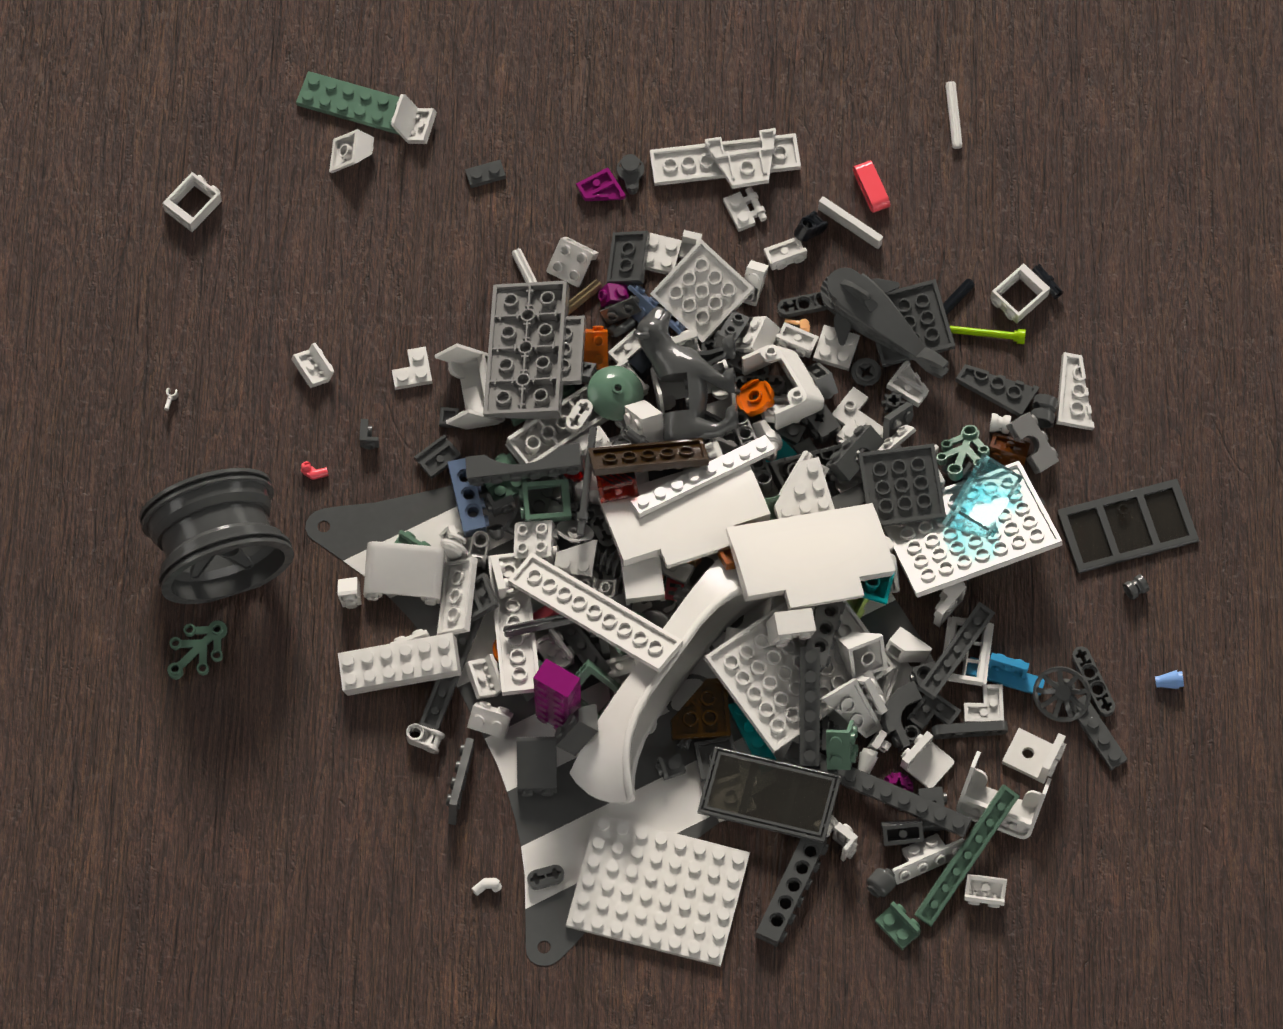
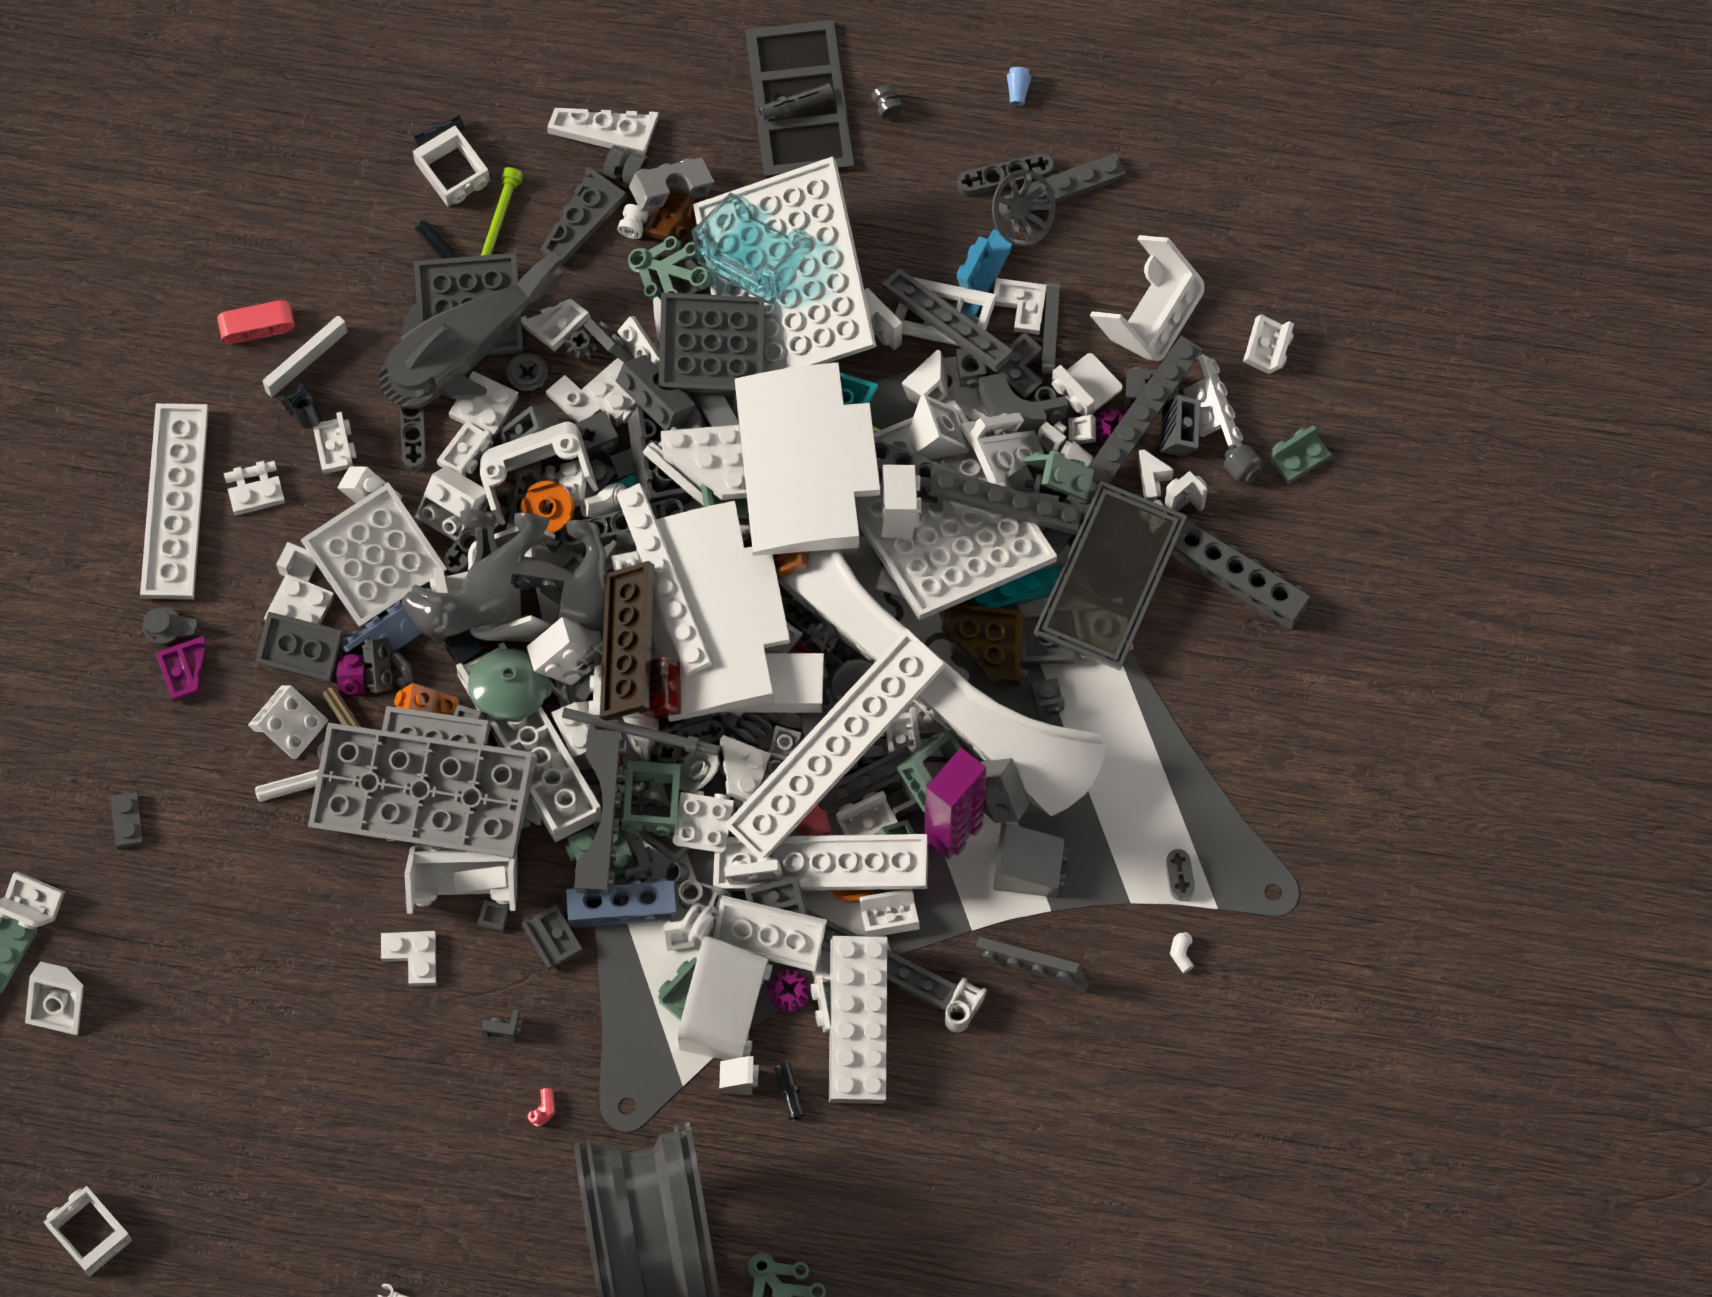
camera: 80 degrees left, 0 degrees up
(313, 366) = (383, 1088): white bracket -> none
(346, 629) = (789, 1091): none -> black pin
(411, 618) = (787, 1002): none -> magenta gear
(490, 719) = (949, 916): white bracket -> none
(535, 625) = (834, 832): dark grey axle -> none
(575, 413) = (533, 738): white beam -> none
(626, 348) = (434, 666): white plate -> none
(658, 889) = (1214, 738): white plate -> none
(733, 325) = (440, 525): dark grey bracket -> none
(746, 166) = (197, 471): white wing -> none
(803, 323) = (443, 438): light nougat hand -> none
(862, 815) = (1151, 473): none -> white slope
(889, 763) = (1082, 429): none -> white tile
(953, 111) = (169, 204): white axle -> none
(966, 855) = (1222, 355): sand green tile -> none
(1044, 755) = (1104, 243): white bracket -> none
(1115, 513) = (784, 106): none -> dark grey pin

